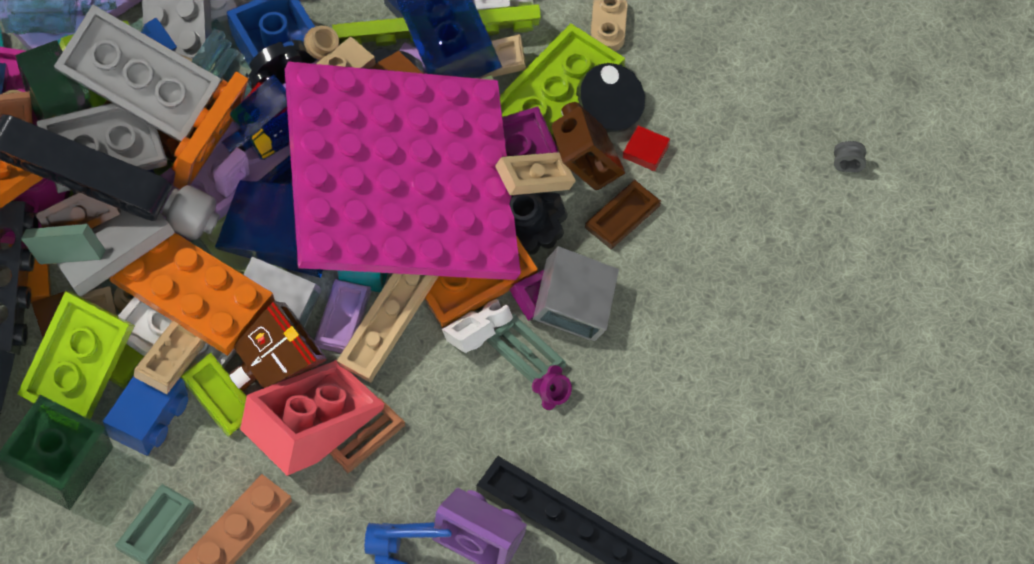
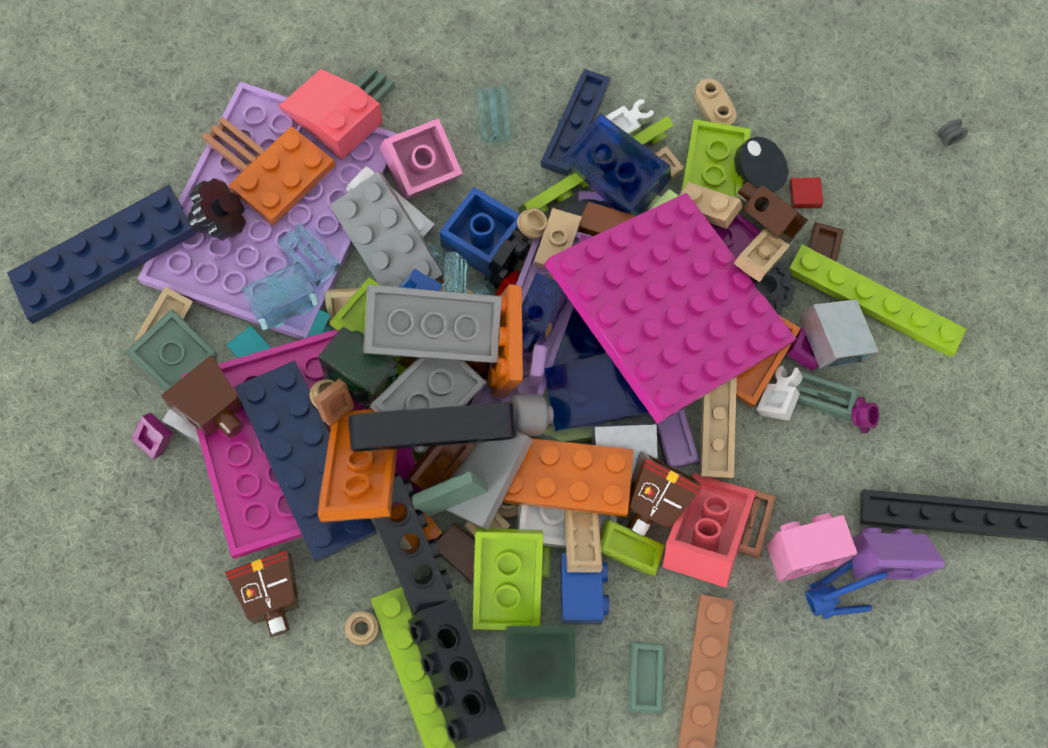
camera: 30 degrees left, 10 degrees up
(394, 477) = (811, 547): none -> bright pink brick
(521, 107) = (715, 206): none -> tan plate
(646, 285) = (877, 301): none -> lime plate

